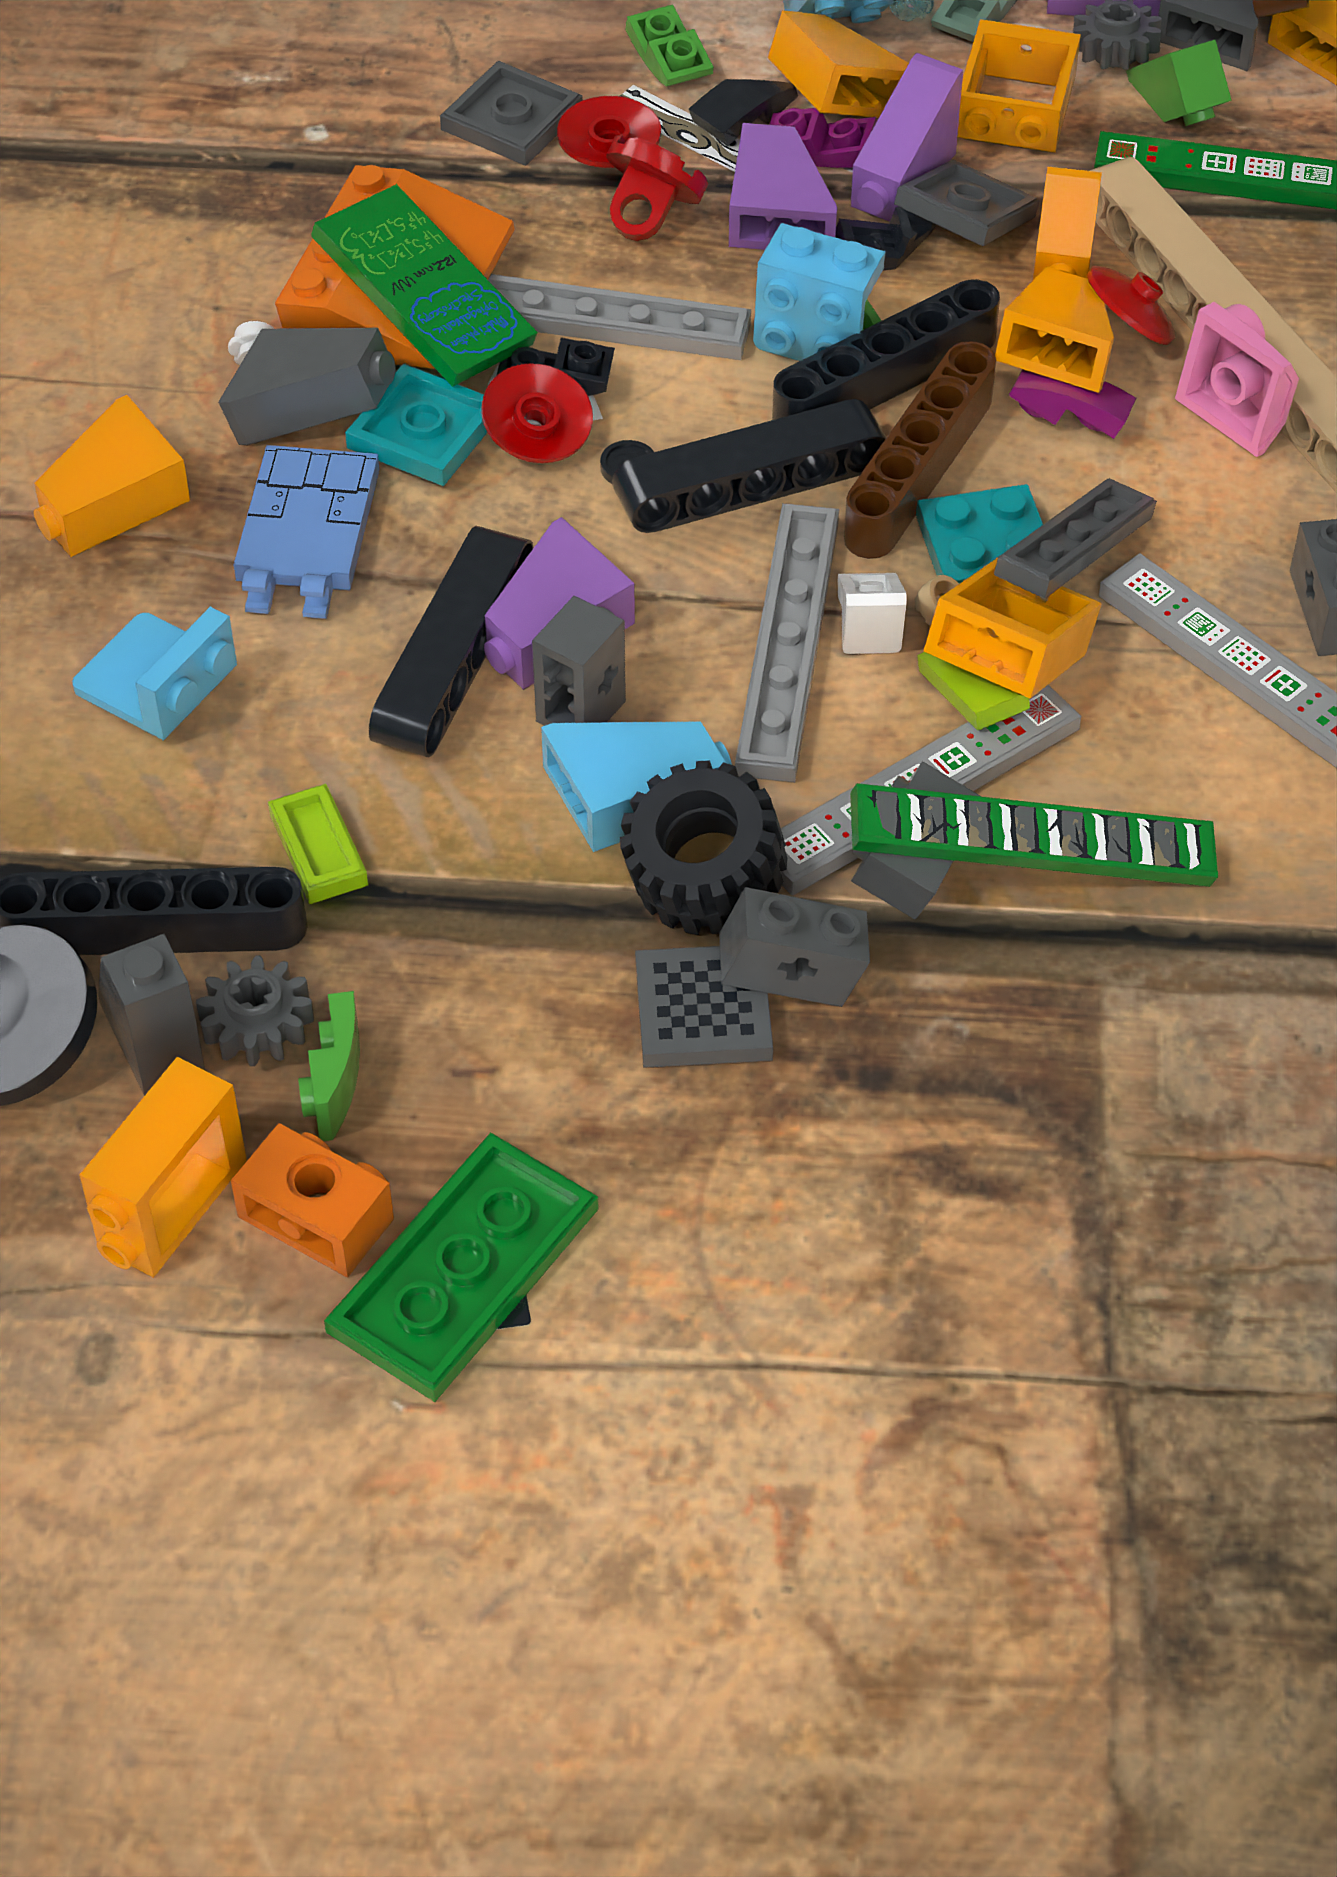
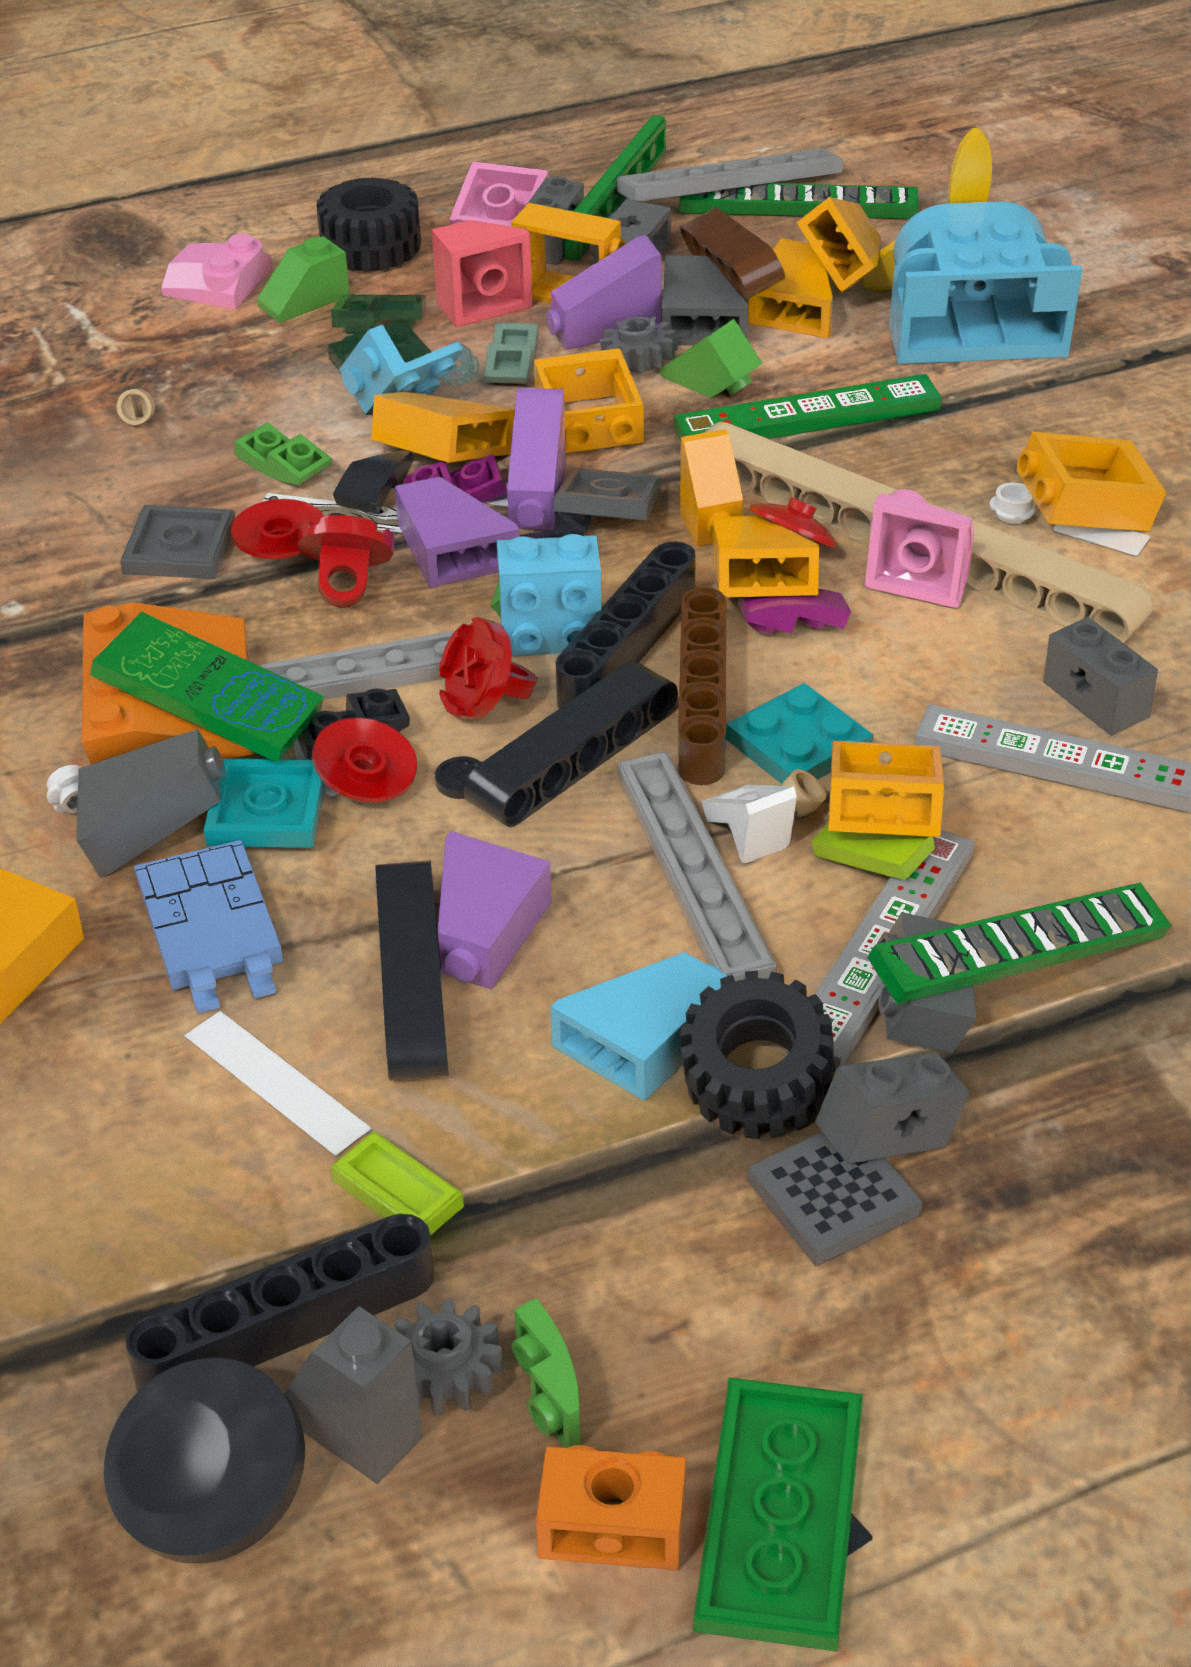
camera: 25 degrees left, 10 degrees down
(158, 671) = (154, 1092): medium azure bracket -> none
(163, 1167) = (463, 1536): light orange window -> none
(278, 707) = (278, 1083): none -> white sticker
(579, 665) = (551, 944): dark grey brick -> none
(706, 360) = (481, 670): none -> red tile
(1075, 538) = (879, 706): dark grey tile -> none

